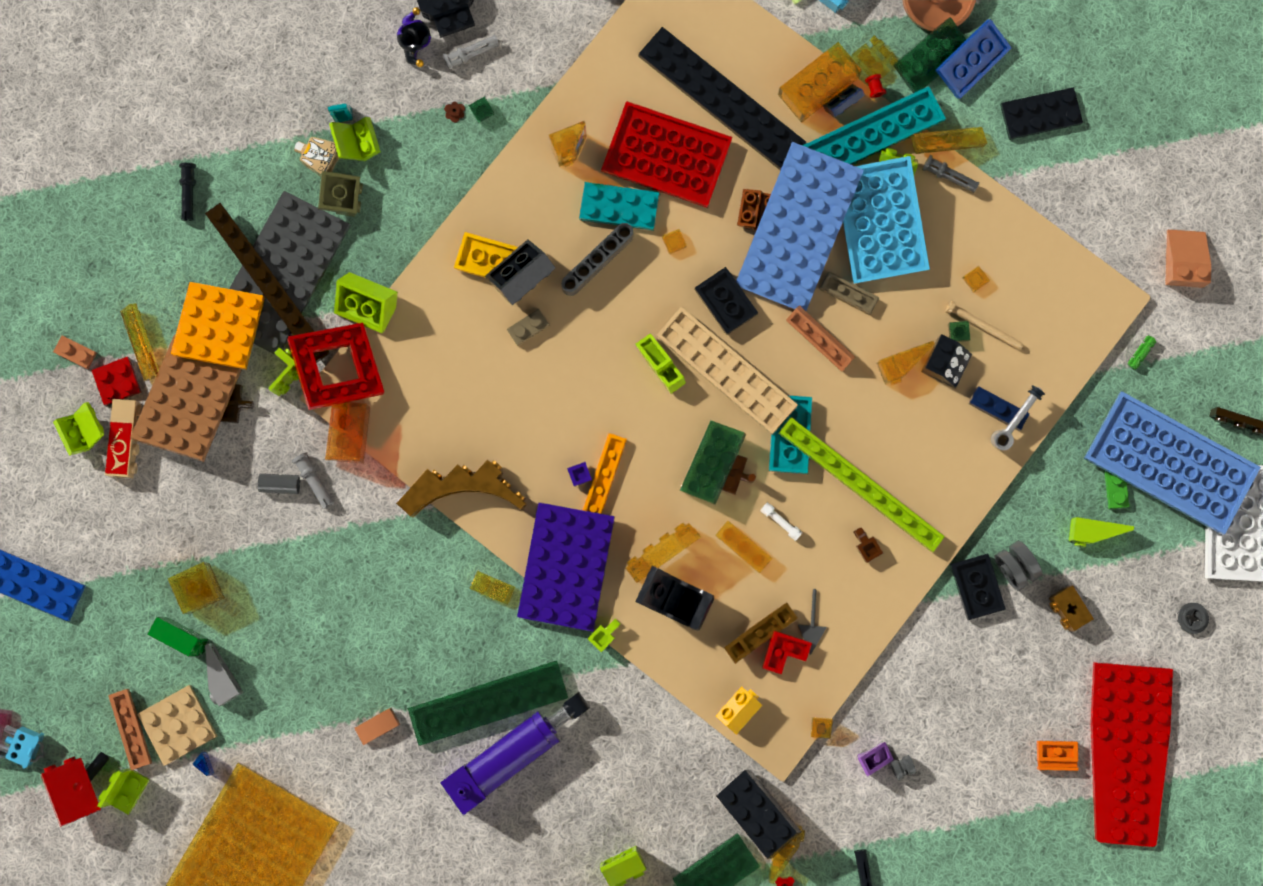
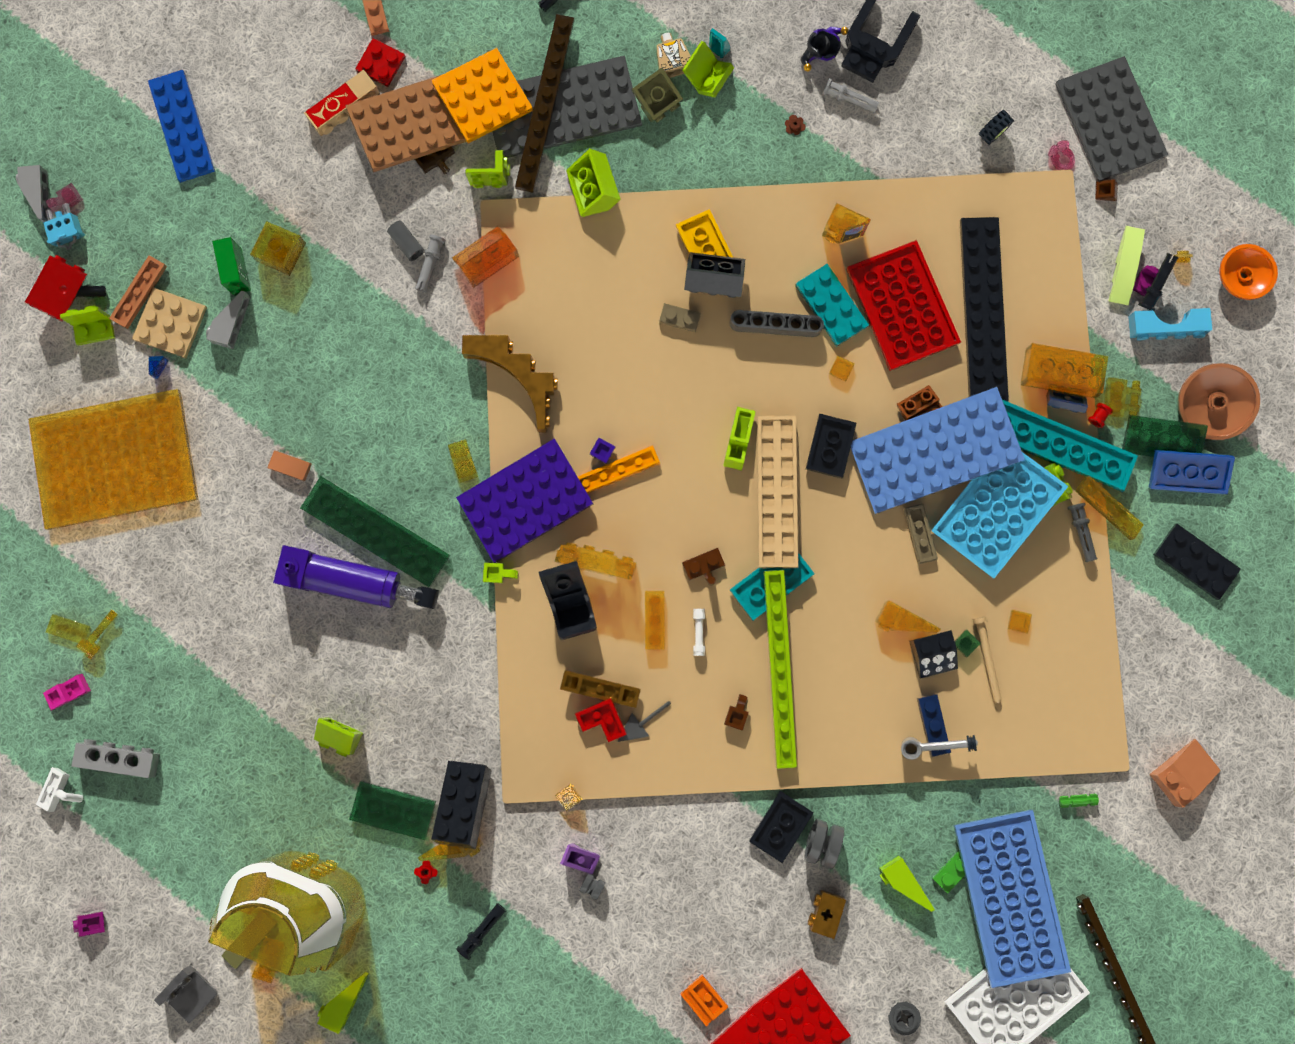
camera: 50 degrees right, 0 degrees up
(80, 430) = (320, 68): lime bracket -> none
(140, 342) = (423, 52): clear yellow plate -> none
(318, 396) = (491, 206): red plate -> none
(481, 109) = (813, 142): clear green plate -> none
(713, 462) = (698, 541): clear green plate -> none
(739, 710) = (527, 723): yellow brick -> none
(820, 338) = (865, 541): nougat plate -> none

